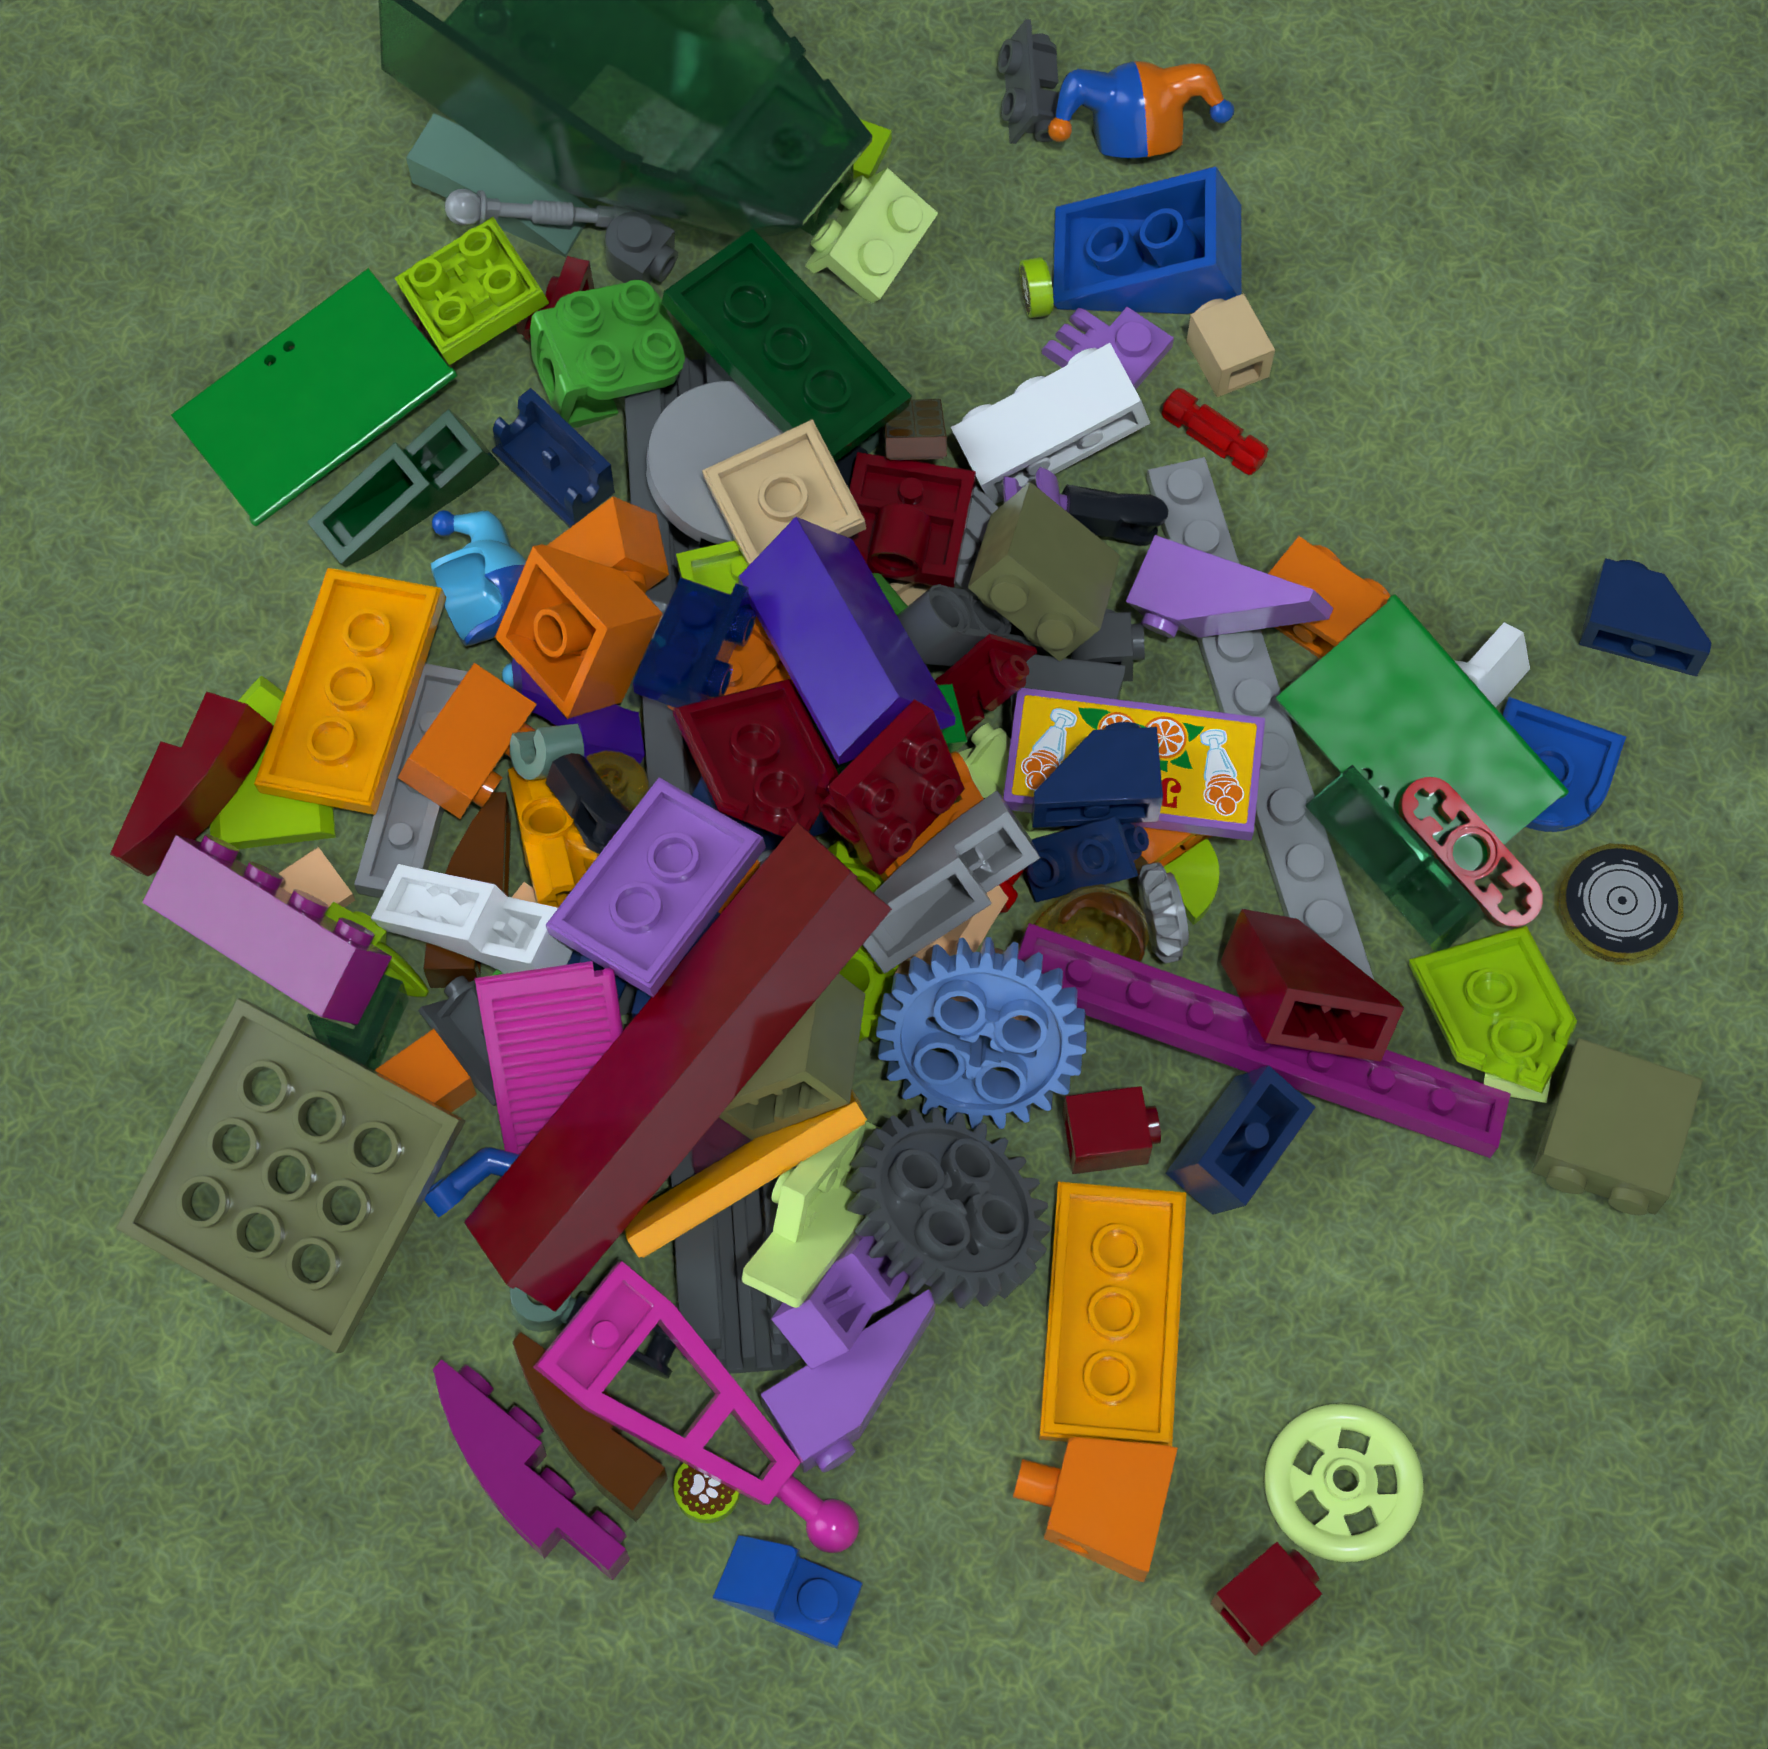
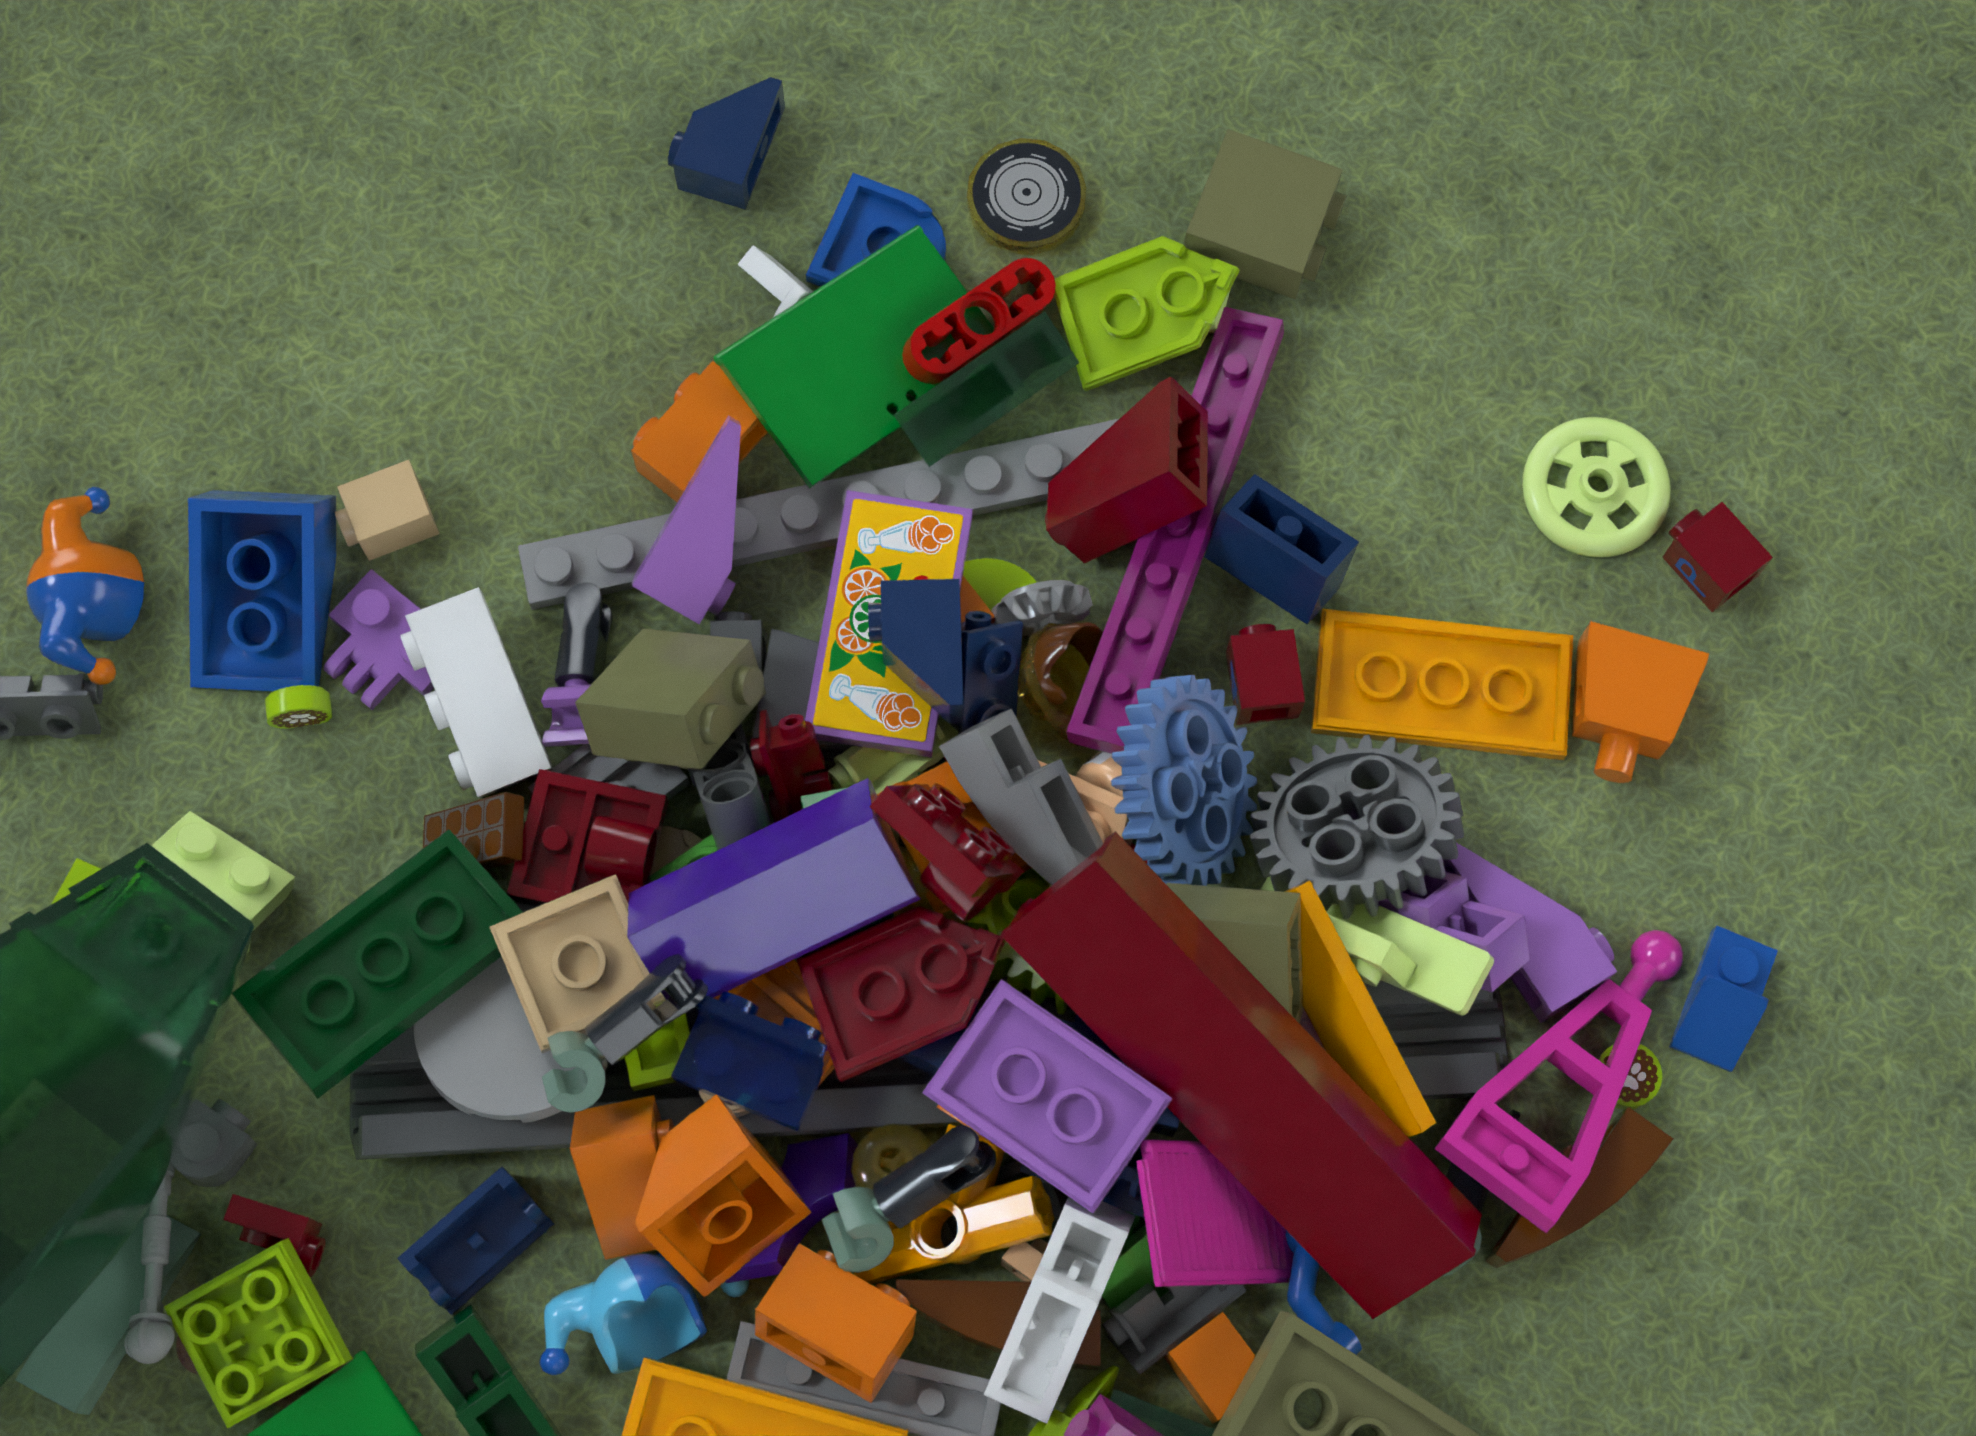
camera: 90 degrees left, 5 degrees up
(503, 1457) = (1614, 1275): magenta slope -> none
(604, 348) = (352, 1173): bright green piece -> none
(695, 499) = (617, 1034): none -> black piece
(1214, 431) = (484, 535): red axle -> none

